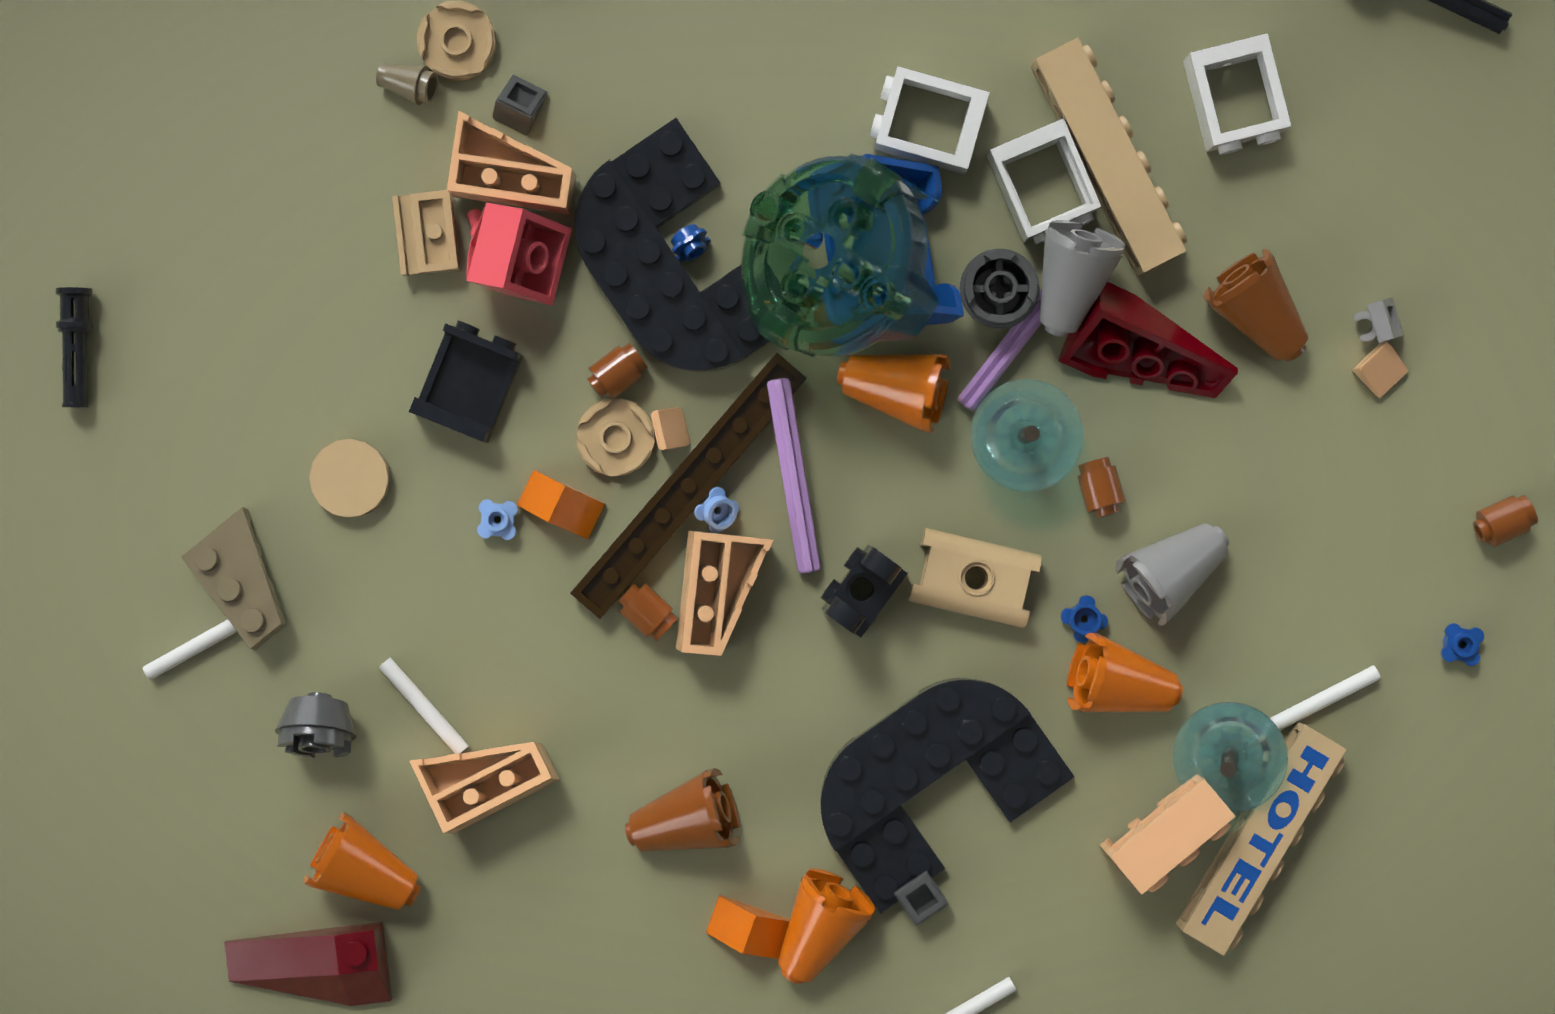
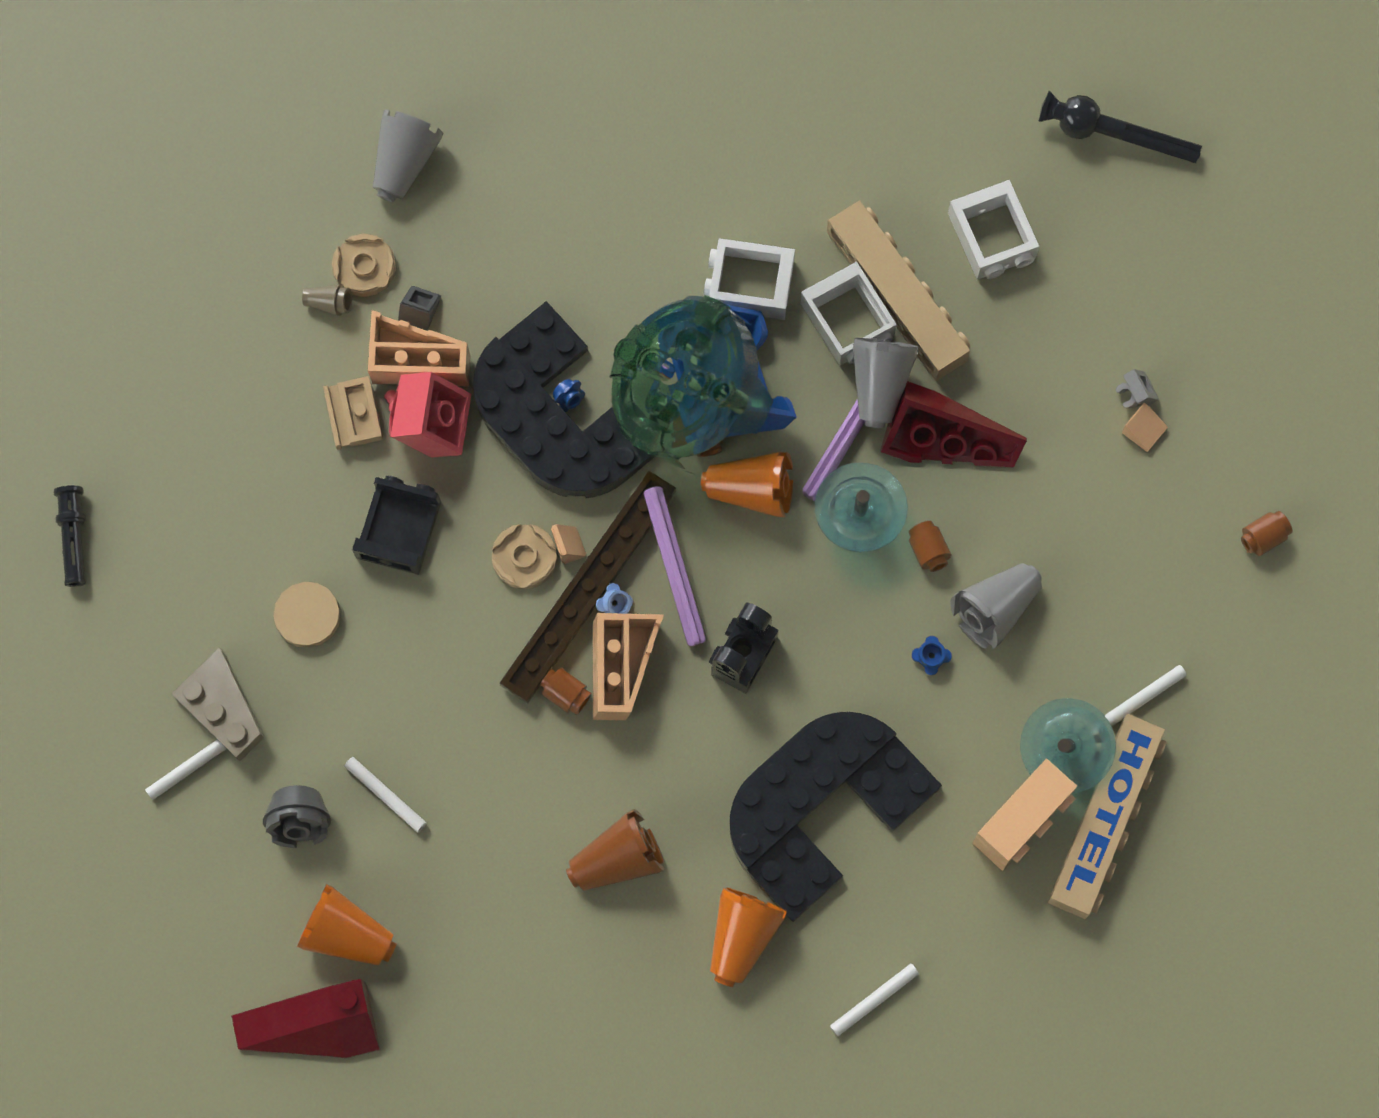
camera: 10 degrees left, 15 degrees down
(479, 783) = (443, 845): light nougat wedge -> none
(507, 513) = (433, 641): light blue plate -> none
(560, 504) = (484, 614): orange slope -> none
(616, 371) = (519, 502): dark orange brick -> none
(747, 928) = (681, 947): orange slope -> none
(921, 898) = (825, 900): dark grey slope -> none
(999, 288) = (823, 396): dark grey cone -> none
(1004, 583) = (857, 620): tan piece -> none
(1119, 680) = (968, 697): orange cone -> none
(1260, 306) = (1038, 388): dark orange cone -> none
(1453, 636) = (1242, 645): blue plate -> none

